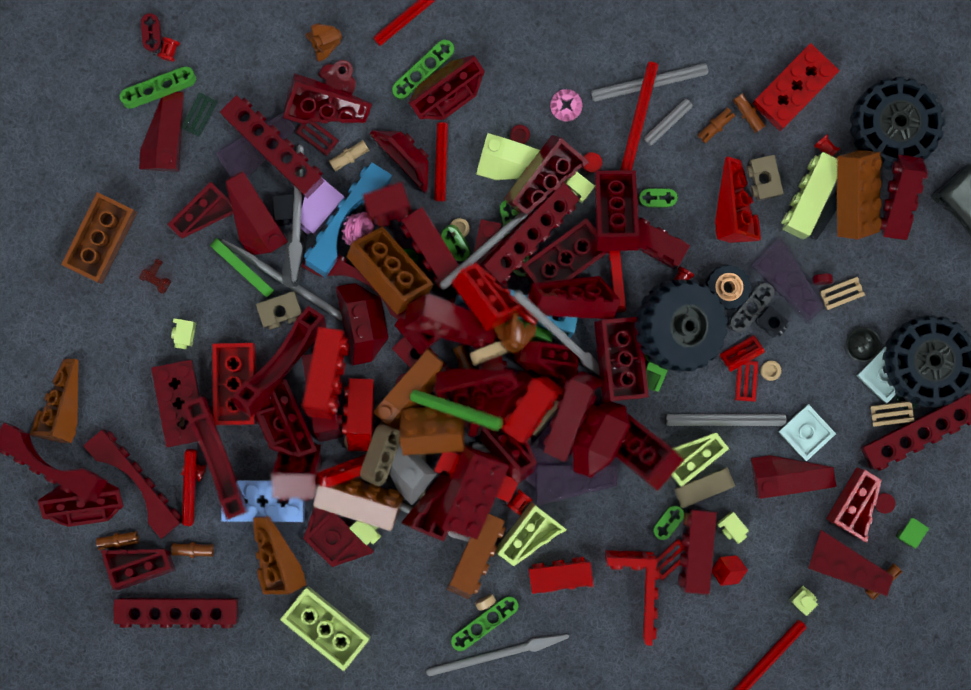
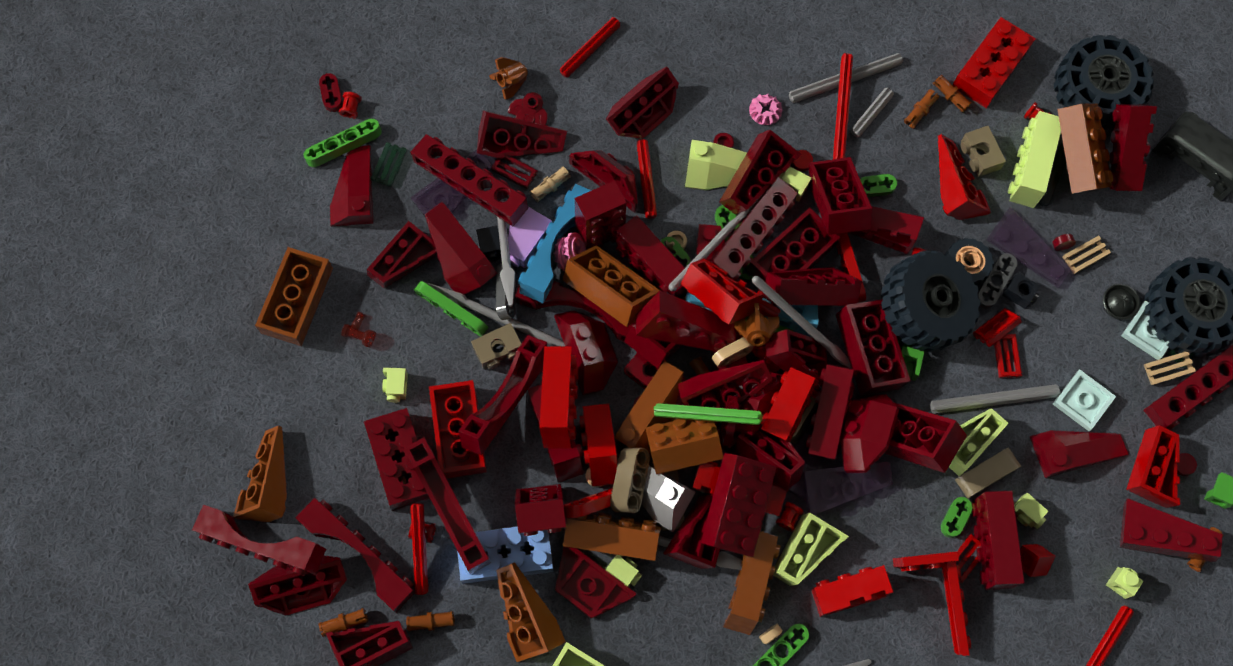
camera: 10 degrees left, 15 degrees down
(284, 424) = (517, 461): dark red wedge -> none
(421, 68) = (613, 93): bright green beam -> none
(770, 370) = (1030, 342): tan tile -> none

